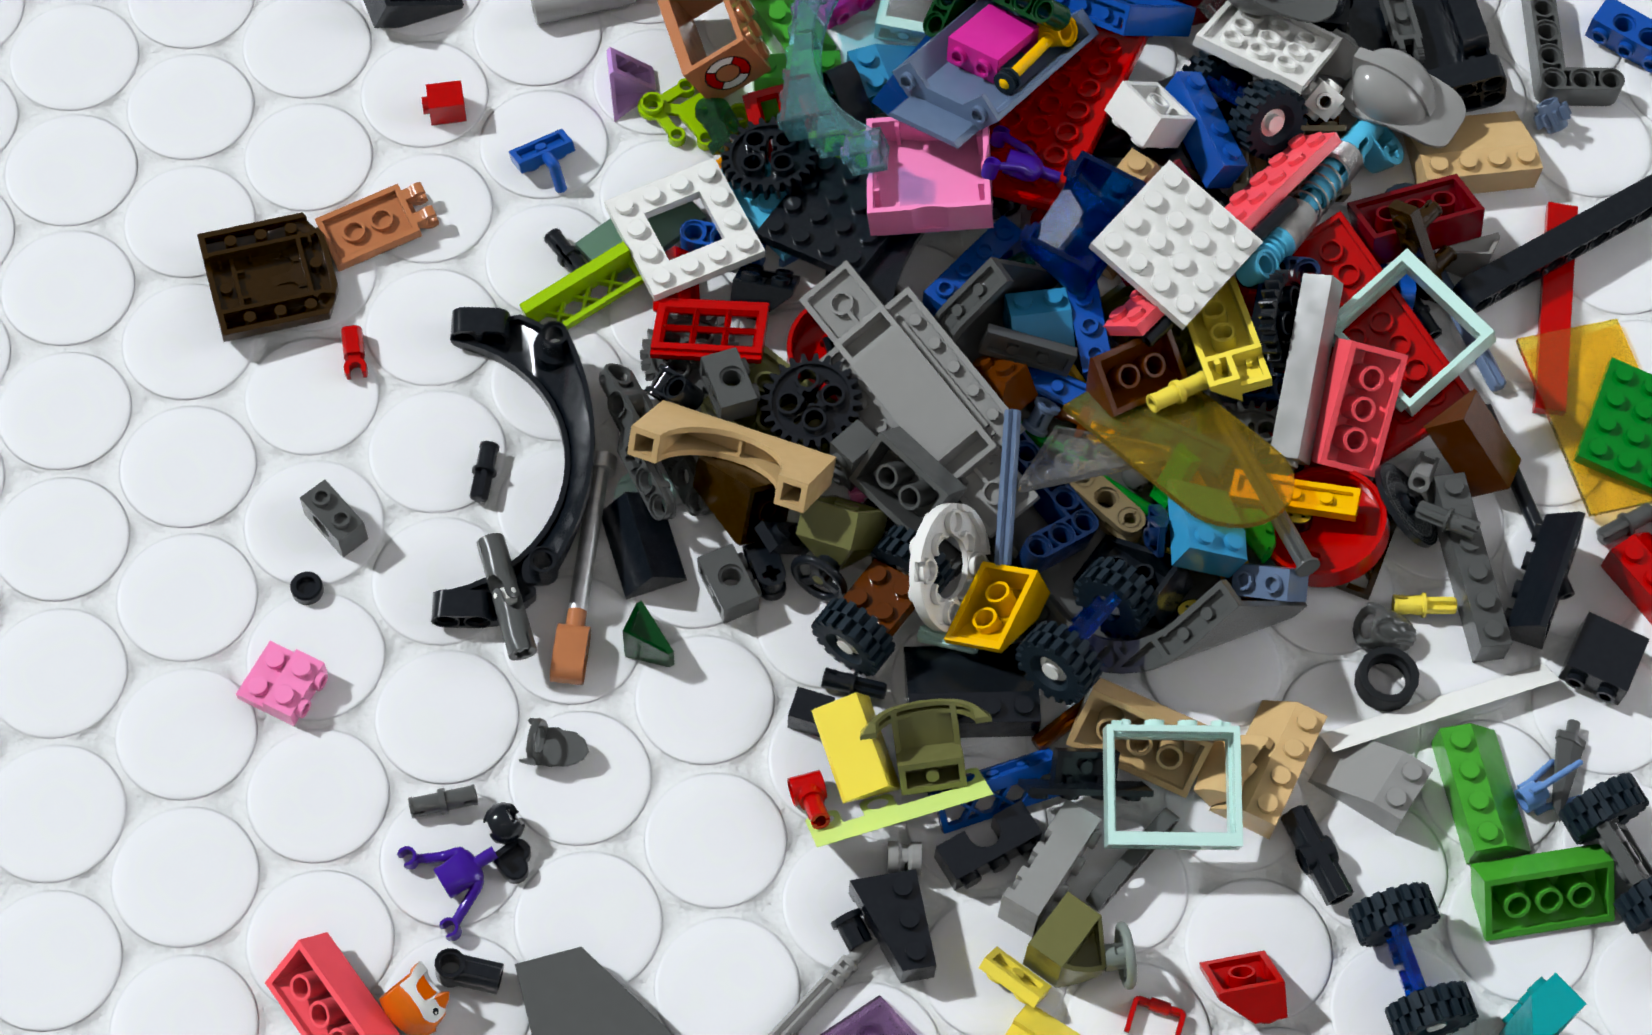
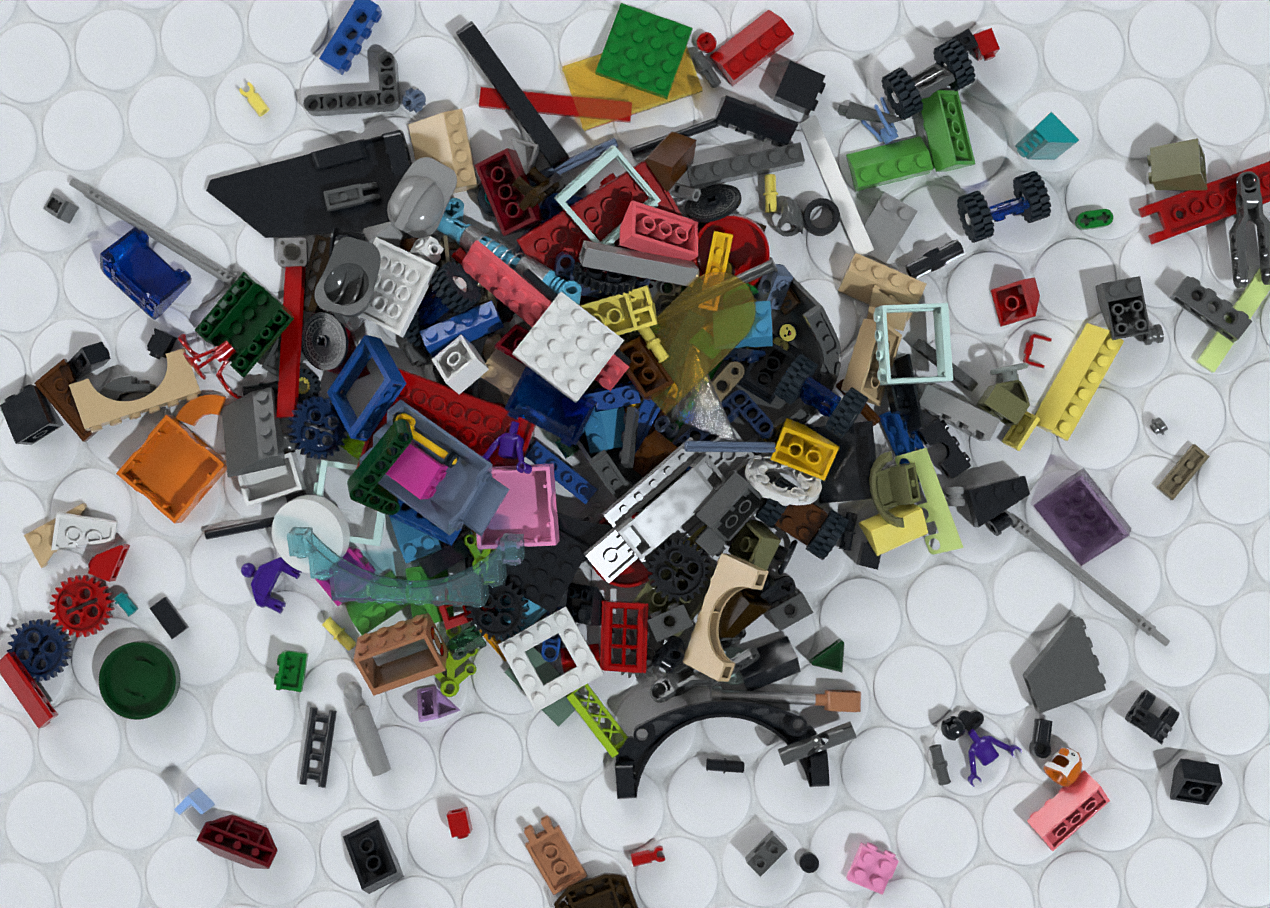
camera: 90 degrees left, 25 degrees up
(545, 151) = (493, 755): blue plate -> none
(553, 745) = (902, 704): dark grey piece -> none
(567, 255) = (567, 730): black pin -> none
(810, 793) = (920, 553): red pin -> none
(1447, 519) = (726, 178): dark grey axle -> none

